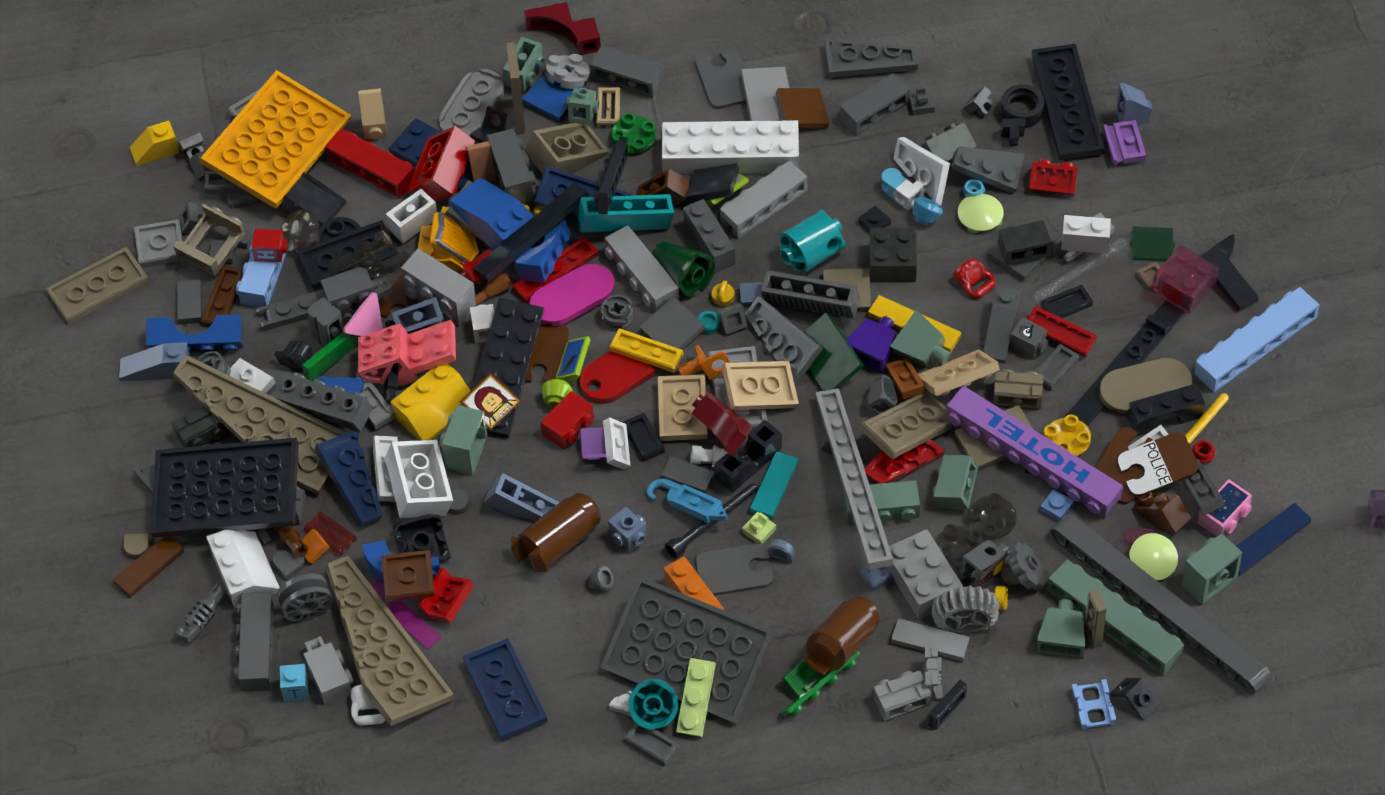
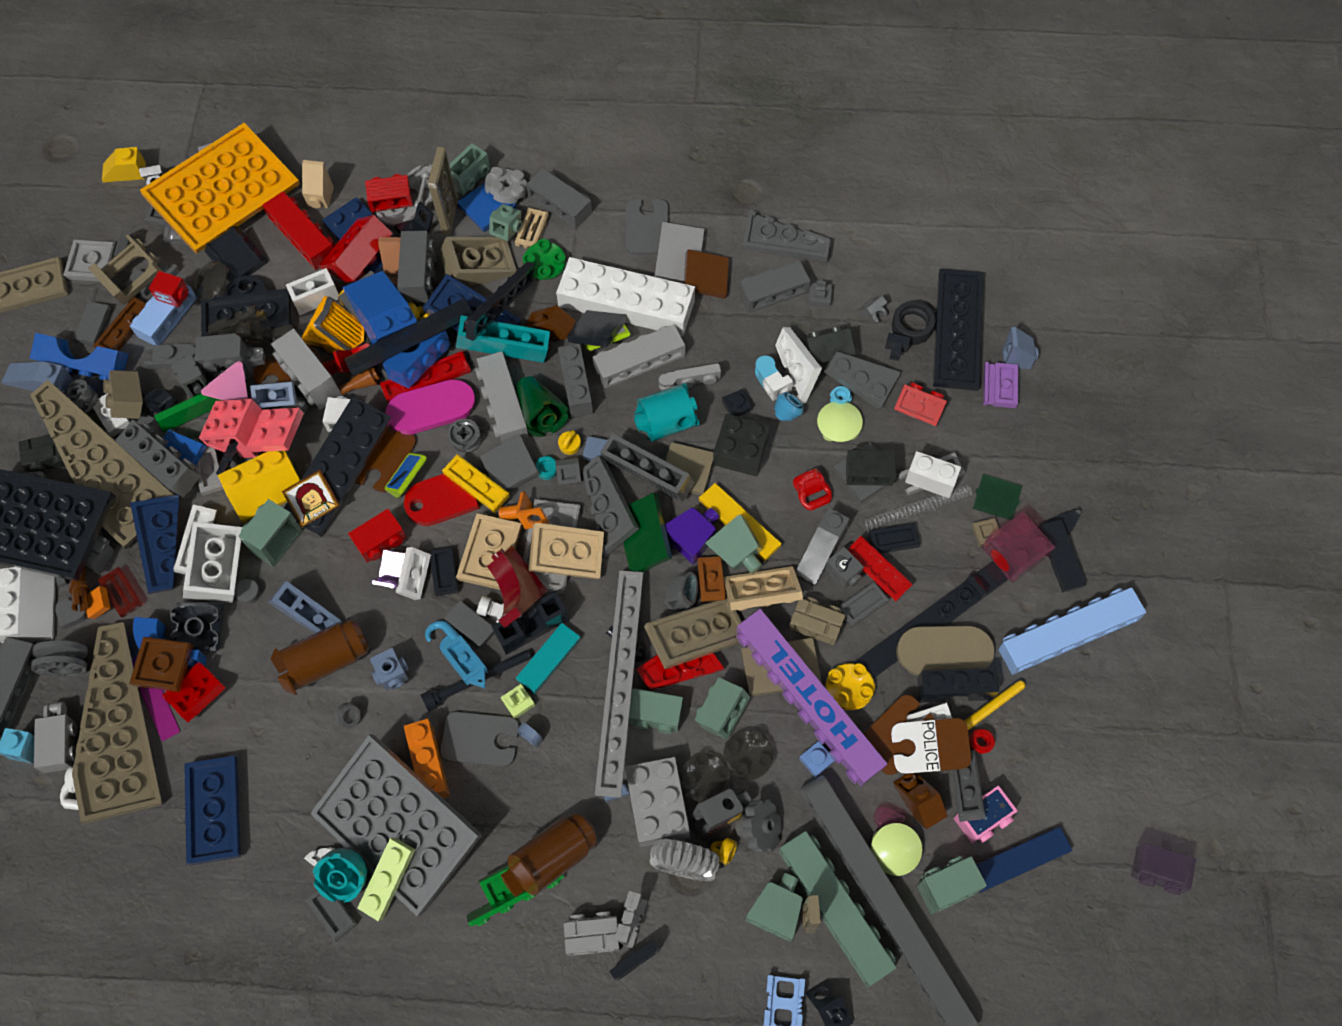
camera: 15 degrees right, 10 degrees up
(261, 354) = (123, 395): none -> dark tan brick
(451, 105) = (388, 192): none -> red brick
(481, 80) = (425, 175): none -> light grey hinge
(555, 391) = (376, 503): lime cone -> none
(558, 19) = (517, 134): dark red arch -> none
(828, 202) = (703, 374): none -> light grey hinge
(917, 635) = (643, 876): light grey tile -> none

